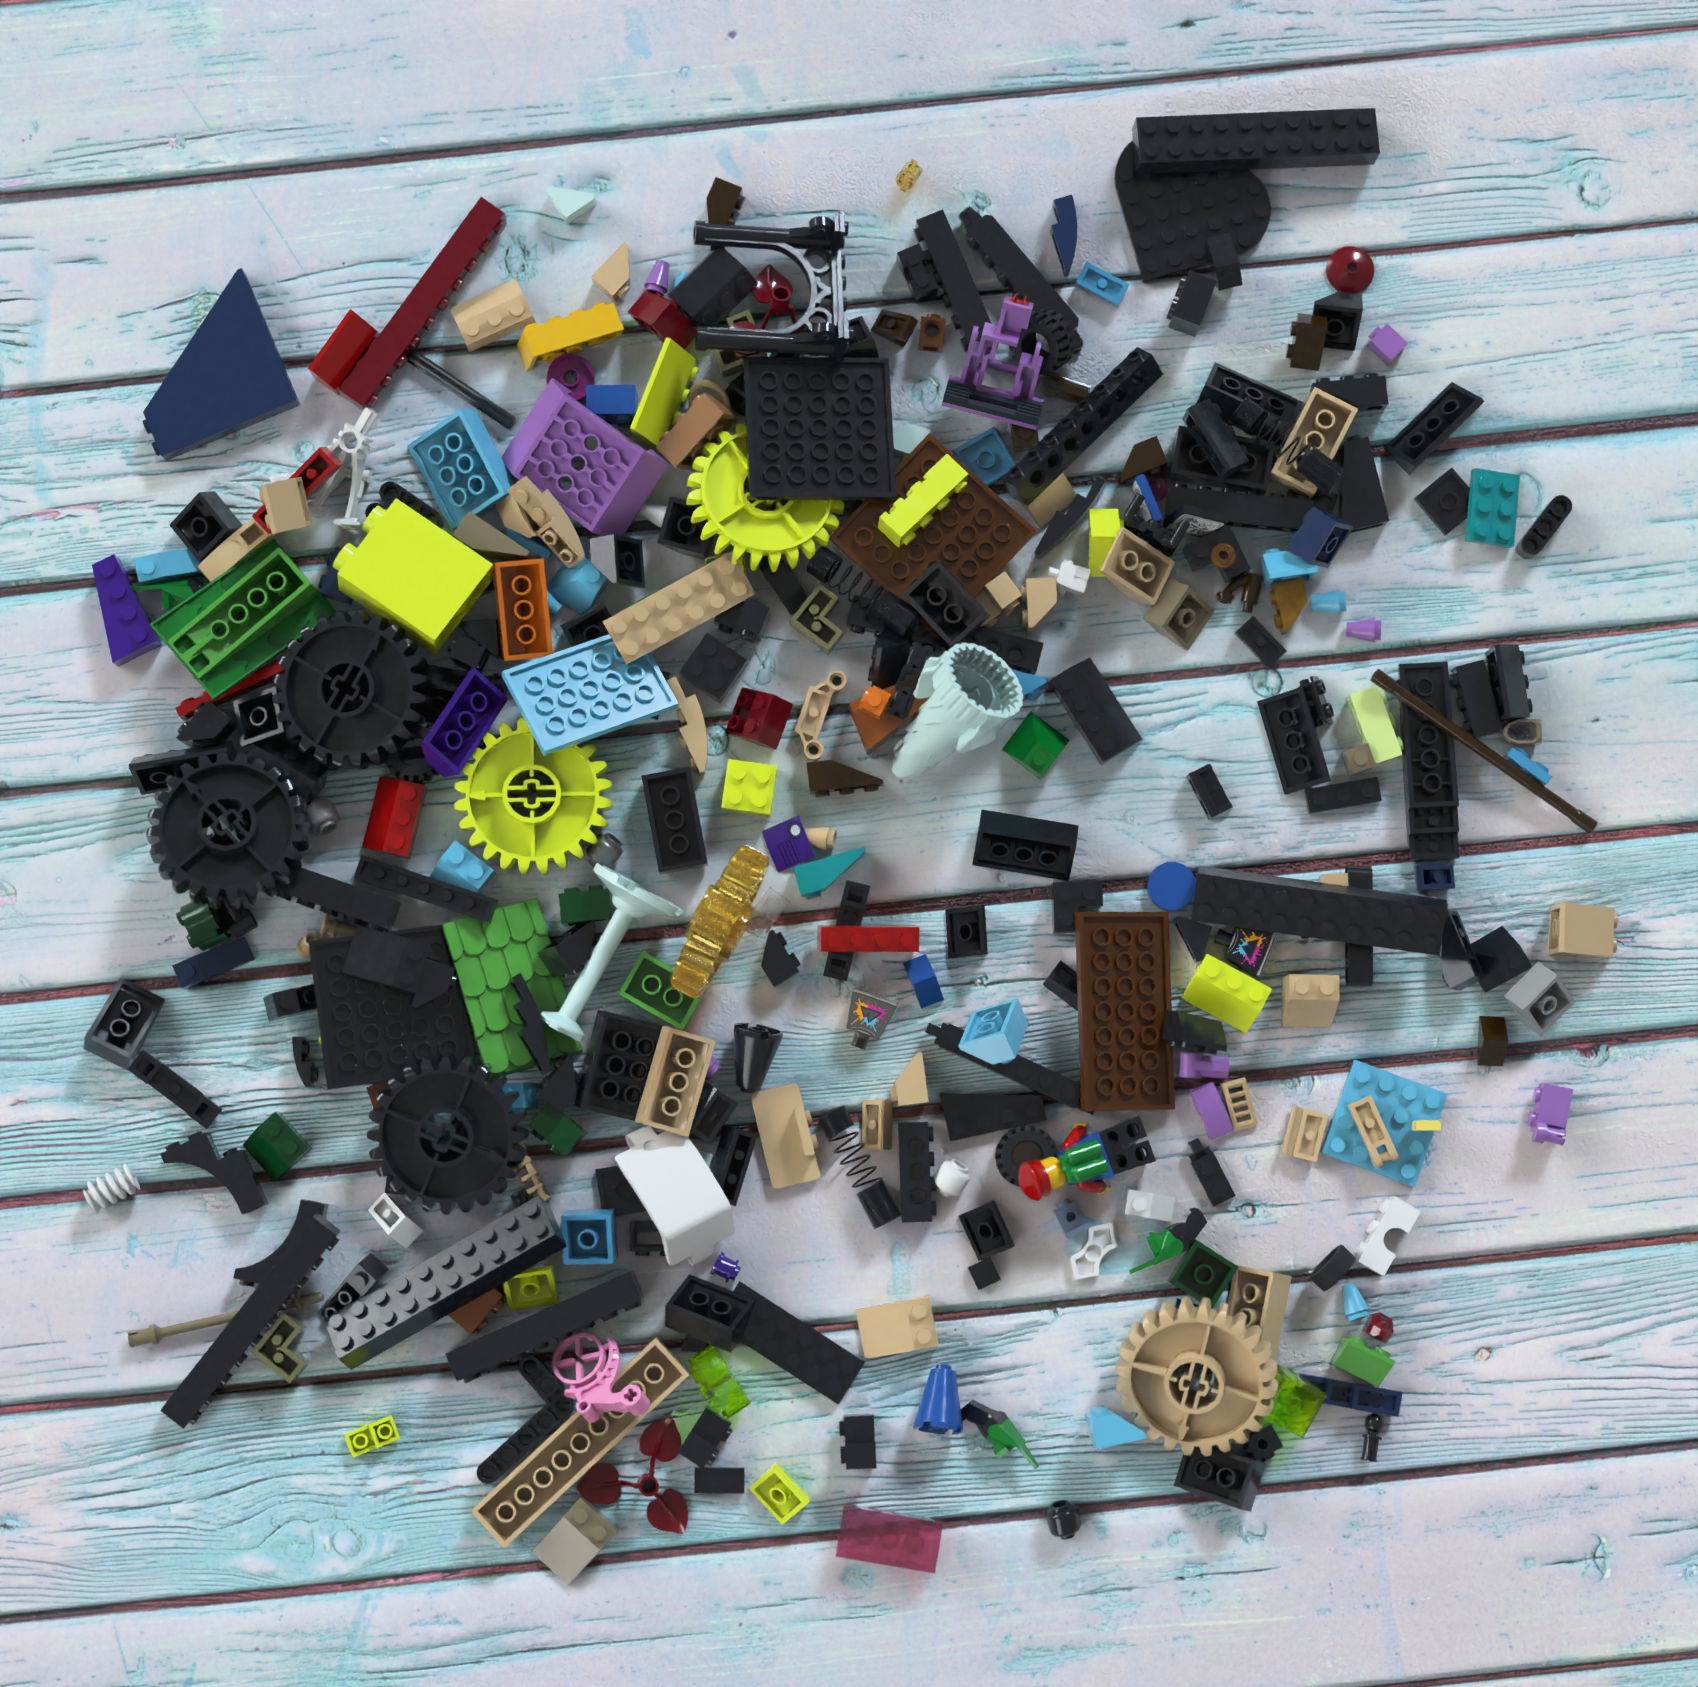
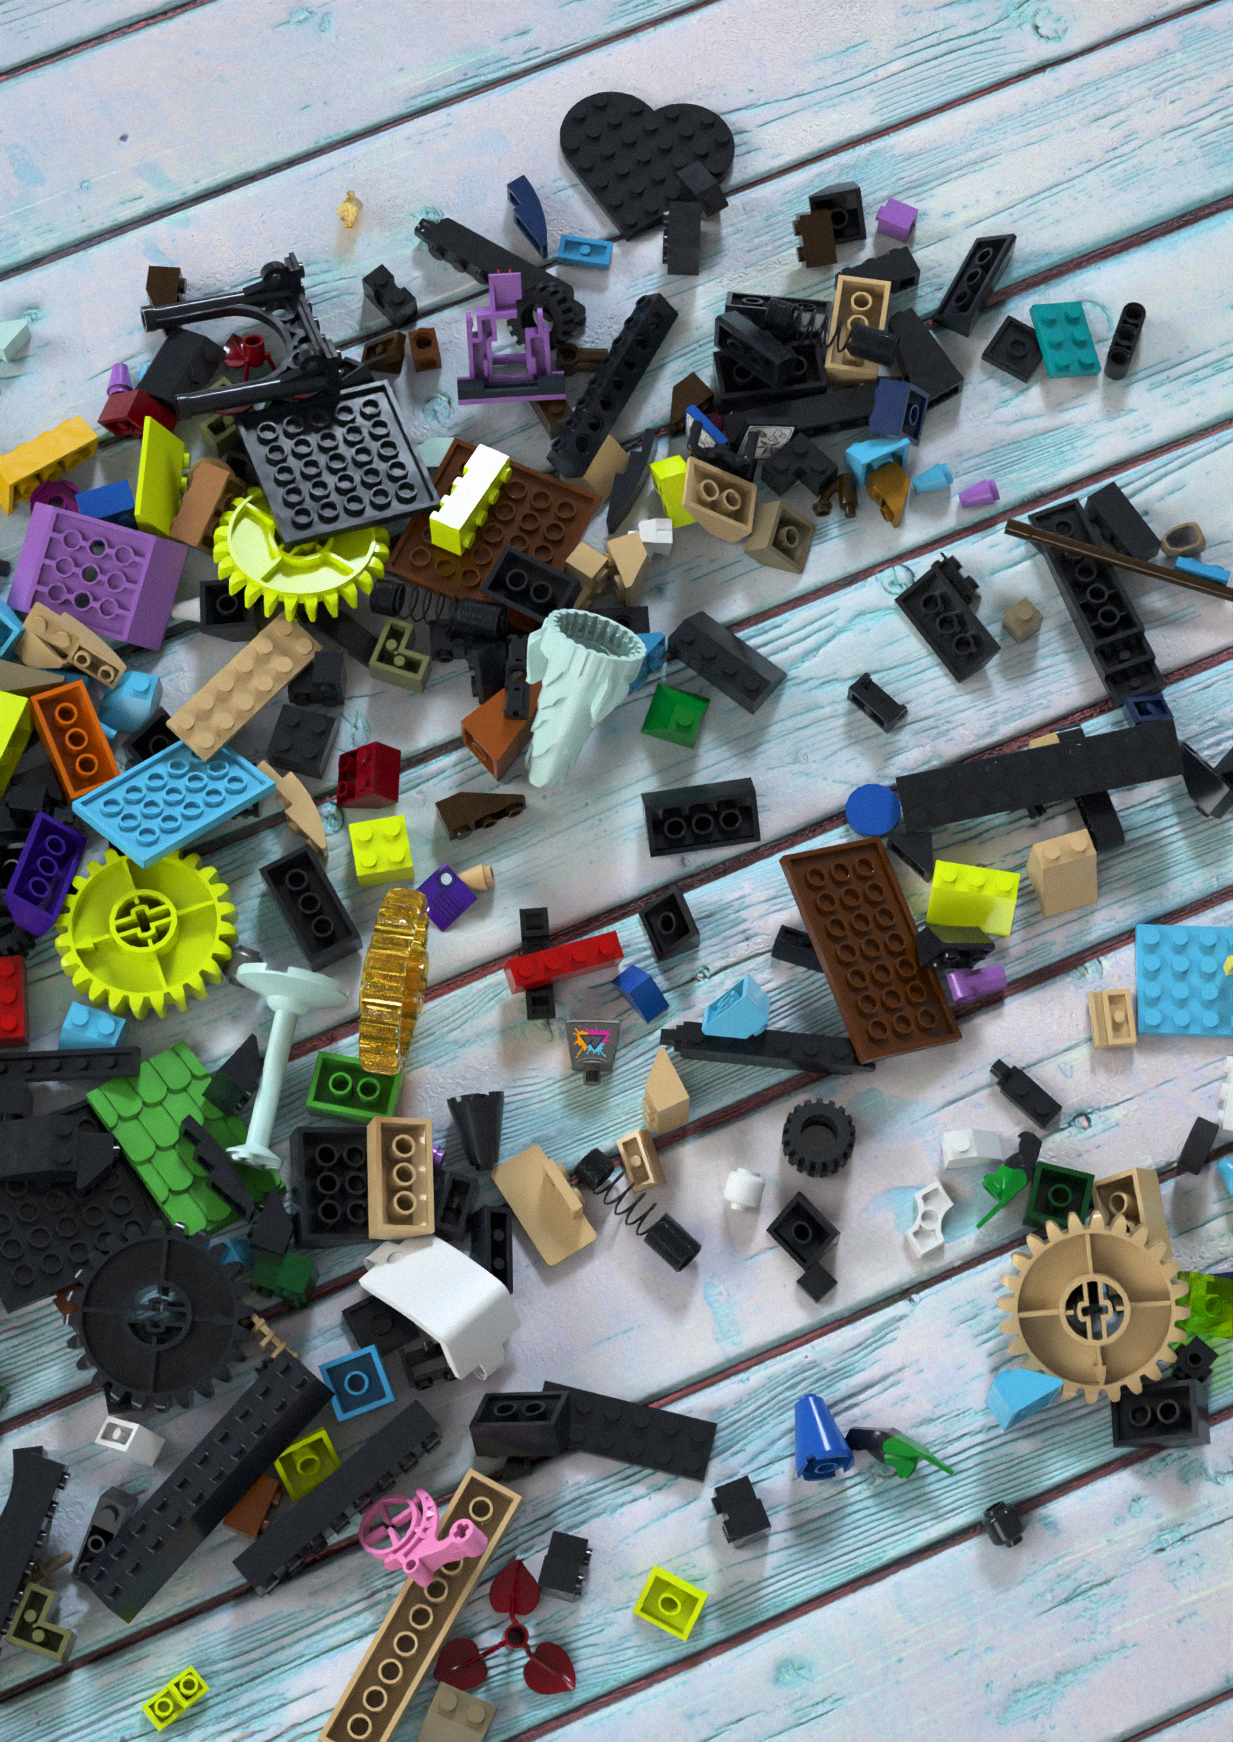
camera: 15 degrees left, 15 degrees down
(533, 1425) = (358, 1620): black beam -> none
(585, 906) = (237, 1022): dark green brick -> none
(614, 274) = (71, 392): tan slope -> none
(619, 559) = (163, 657): black slope -> none
(717, 1382) = (558, 1498): clear neon green brick -> none
(719, 1480) = (596, 1614): black tile -> none
(725, 1268) = (524, 1369): dark purple brick -> none
(767, 913) = (444, 973): clear slope -> none
(776, 961) = (472, 1021): black slope -> none
(815, 711) = (426, 751): tan plate -> none
(820, 874) = (490, 914): teal slope -> none
(874, 701) = (487, 707): orange brick -> none
(889, 1538) = (813, 1611): clear pink brick -> none
(897, 1327) = (741, 1371): tan slope -> none
(906, 1134) = (713, 1239): black brick -> none
(952, 275) = (432, 291): black brick -> none
(986, 456) = (525, 446): dark azure tile -> none
(986, 1113) = (757, 1110): black wing -> none
(1068, 898) = (763, 858): black brick -> none
(1074, 1227) = (891, 1199): sand blue brick -> none
(1087, 1160) = (887, 1115): piece -> none
(1212, 1110) = (1003, 1024): medium lavender slope -> none
(1217, 561) = (802, 465): clear orange plate -> none
(1230, 1107) = (1037, 1004): tan slope -> none
(1246, 948) = (976, 843): black torso -> none
(1255, 141) = (692, 72): black brick -> none
(1260, 642) = (875, 539): black plate -> none
(1342, 278) = (825, 173): dark red dish -> none
(1342, 795) = (1019, 664): black plate -> none
(1372, 1131) = (1185, 987): tan plate -> none
(1375, 724) = (1023, 578): yellowish green brick -> none
(1508, 681) = (1145, 492): black slope -> none

